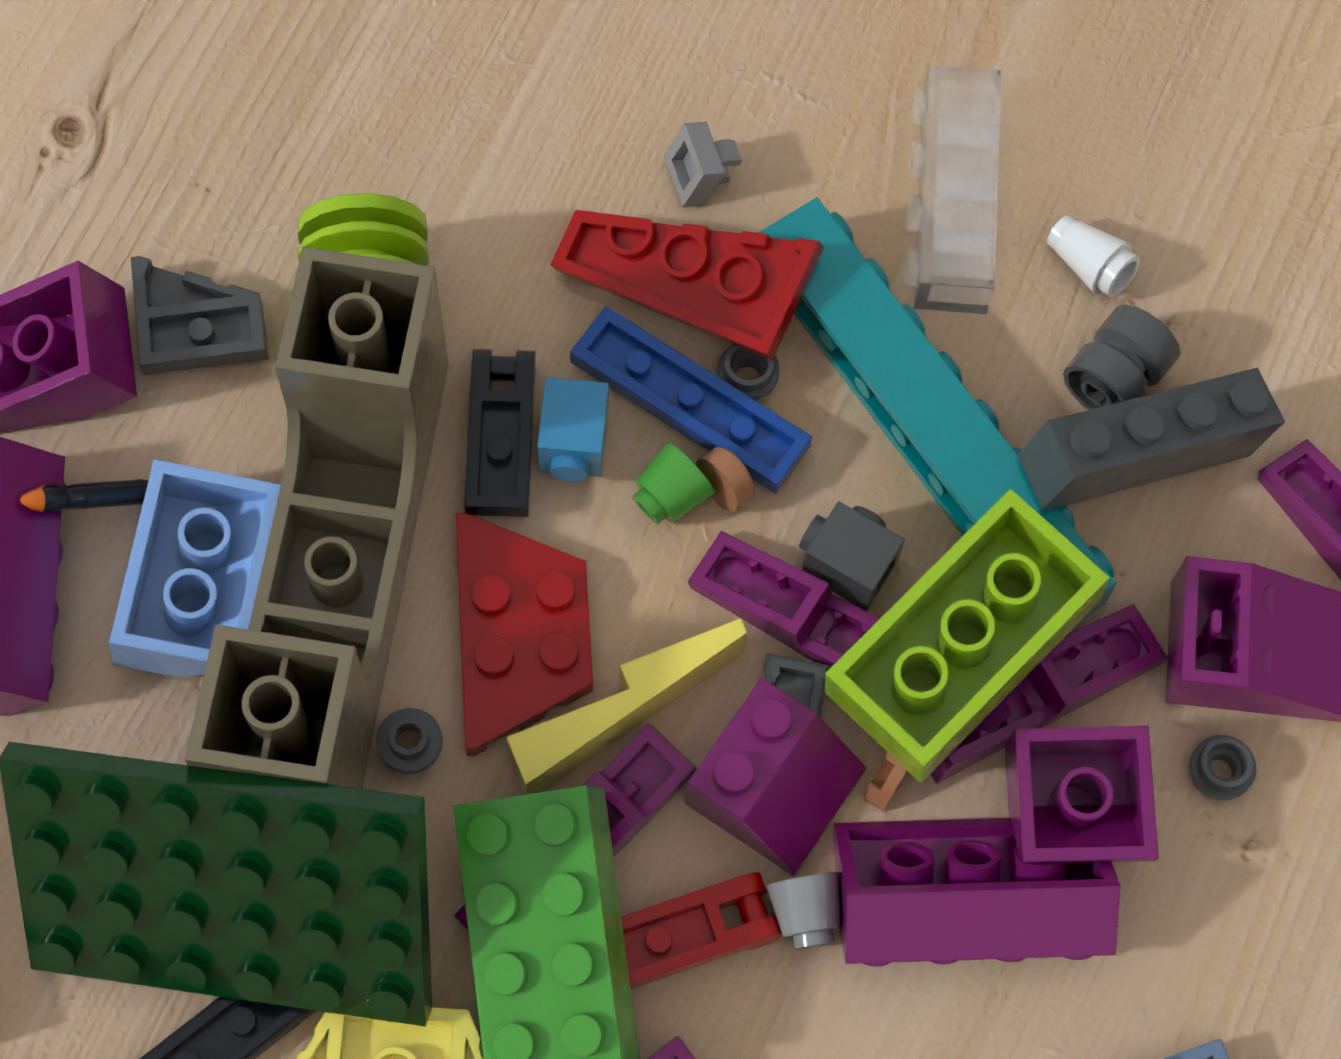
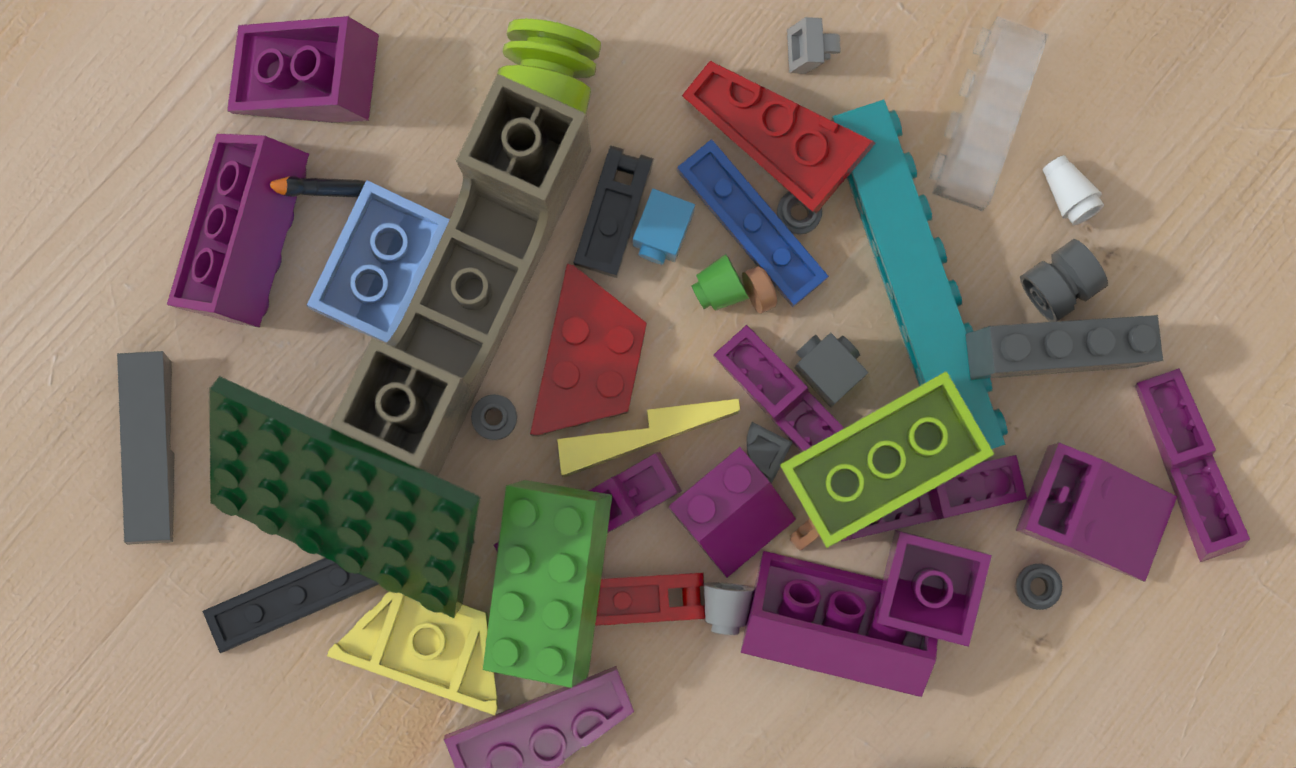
camera: 20 degrees right, 15 degrees up
(194, 321) = (421, 71): dark grey wing -> none

